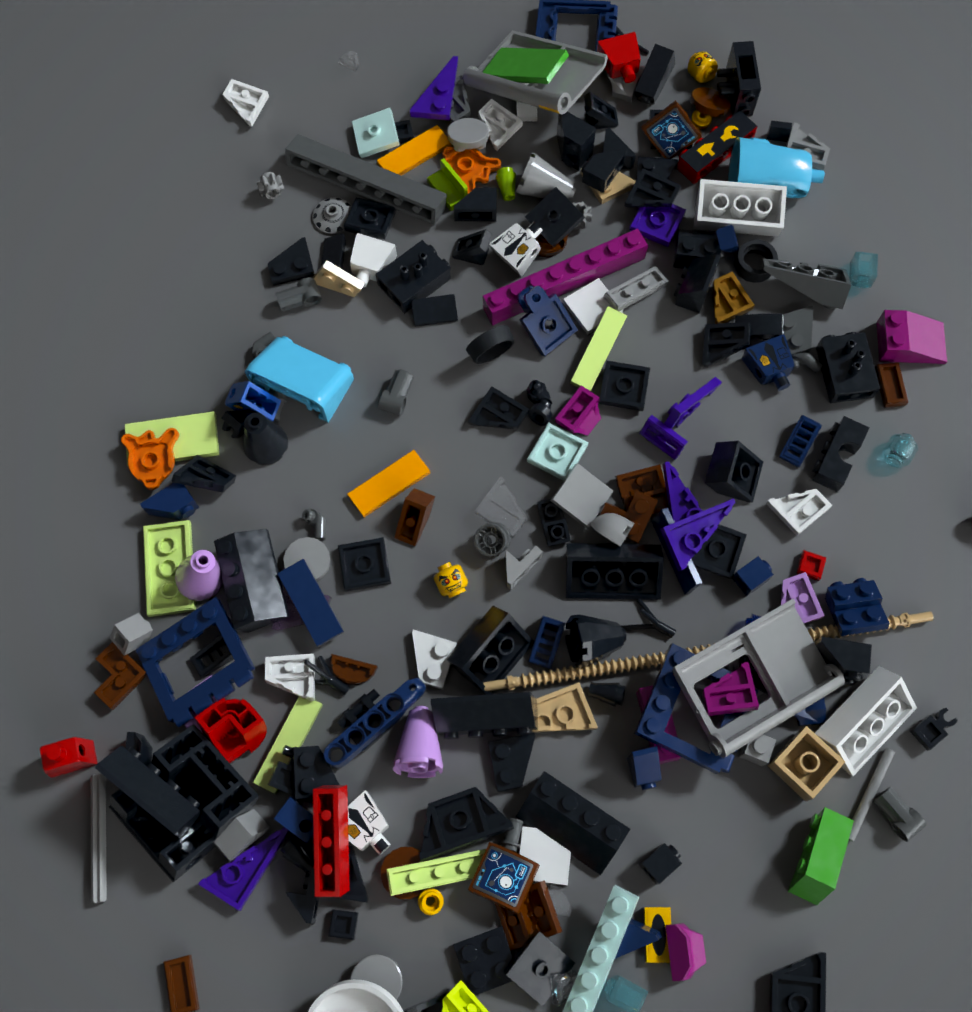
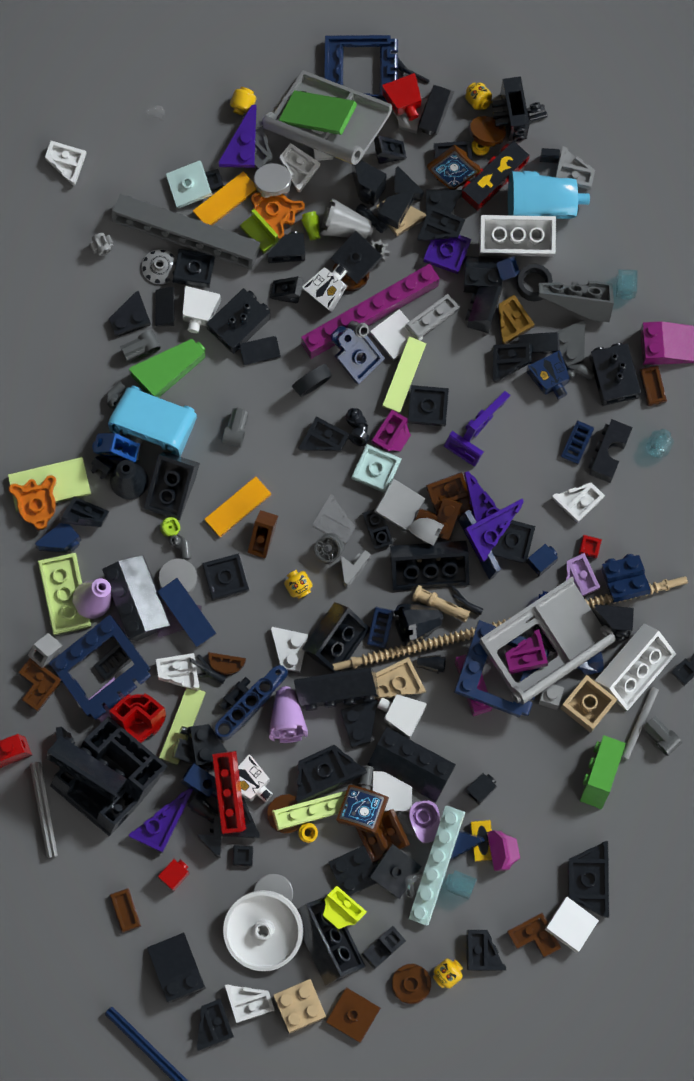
camera: 10 degrees left, 5 degrees up
(241, 834) = (156, 796): light grey slope -> none
(250, 942) = (174, 874): none -> red brick
(305, 499) = (170, 527): none -> lime tile
(312, 451) = (171, 485): none -> black slope
(327, 320) = (167, 368): none -> bright green slope
(337, 280) = (173, 330): tan wing -> none
(443, 52) = (242, 100): none -> yellow head
(552, 289) = (360, 329): none -> dark grey pin
(566, 754) = (402, 714): none -> white torso
(584, 190) = (362, 210): none -> black axle
(584, 901) = (425, 820): none -> lavender piece
(613, 613) = (432, 599): none -> tan pin
(645, 768) = (464, 718): dark blue slope -> none
(734, 471) = (523, 473): black slope -> none
(768, 88) = (536, 111): none -> black plate

